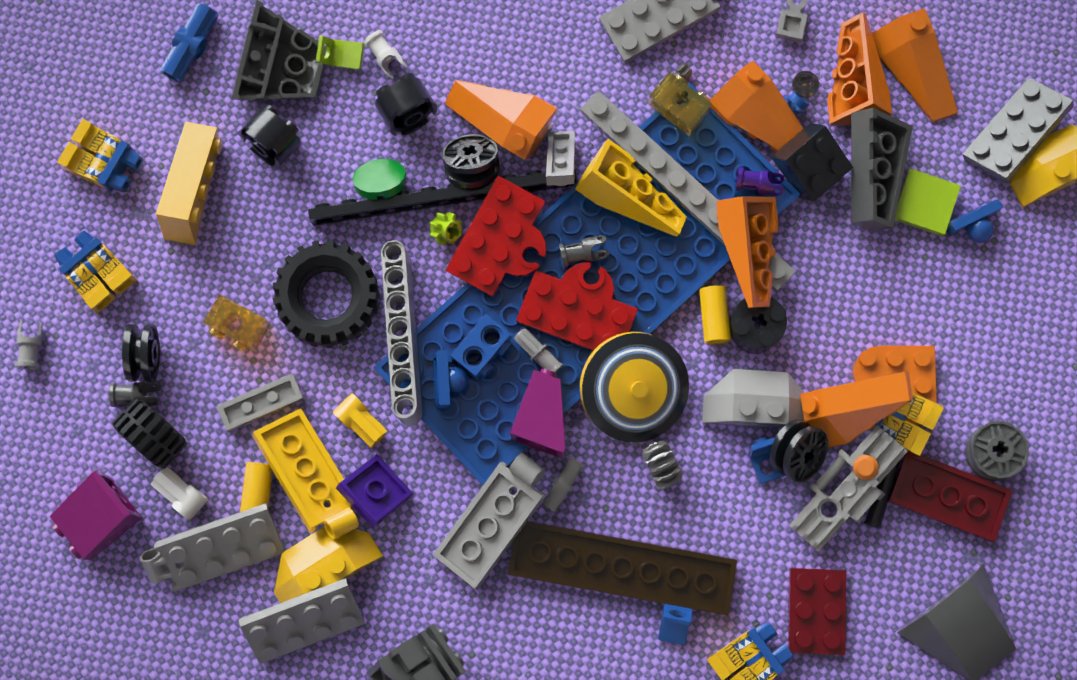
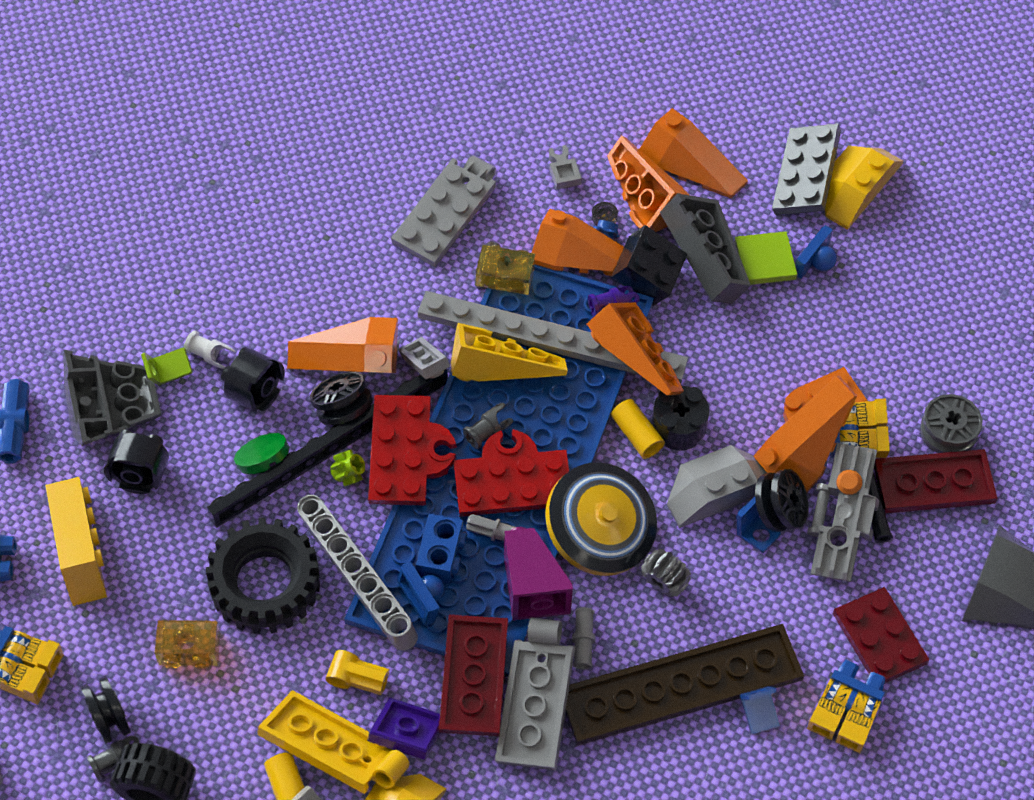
camera: 30 degrees left, 20 degrees down
(260, 402) = (248, 704): light grey plate -> none
(451, 475) = (473, 675): none -> dark red plate

